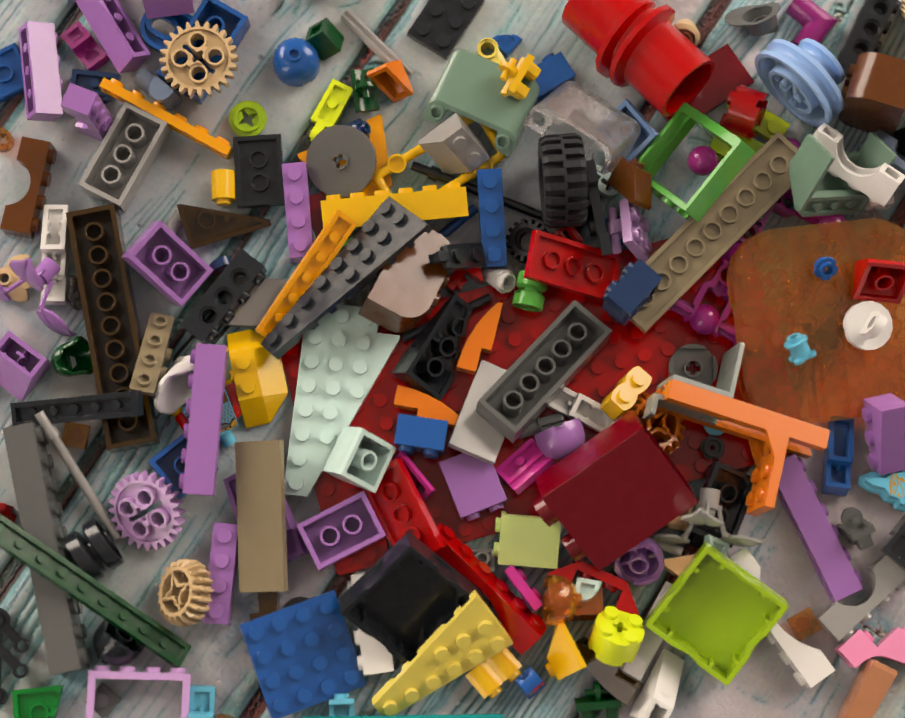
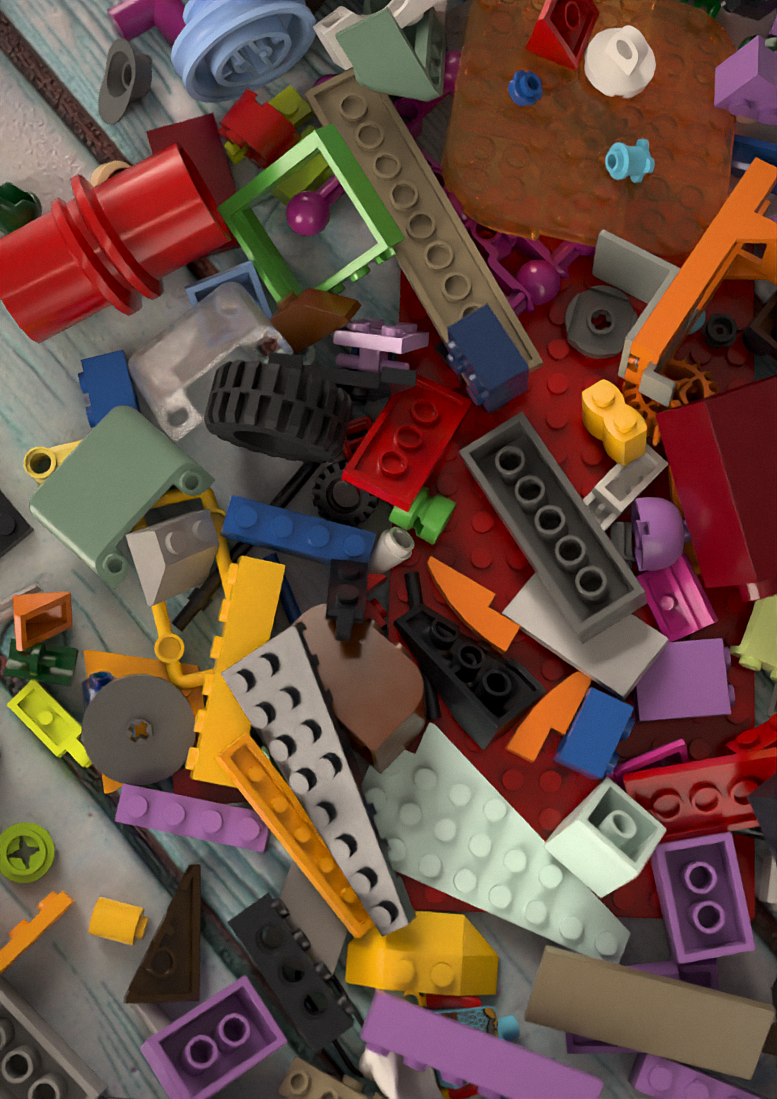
camera: 70 degrees left, 0 degrees up
(219, 264) = (238, 960): dark blue tile -> none
(258, 171) = (110, 859): black plate -> none
(507, 43) = (40, 434): blue tile -> none
(524, 68) = (97, 431): yellow hips -> none

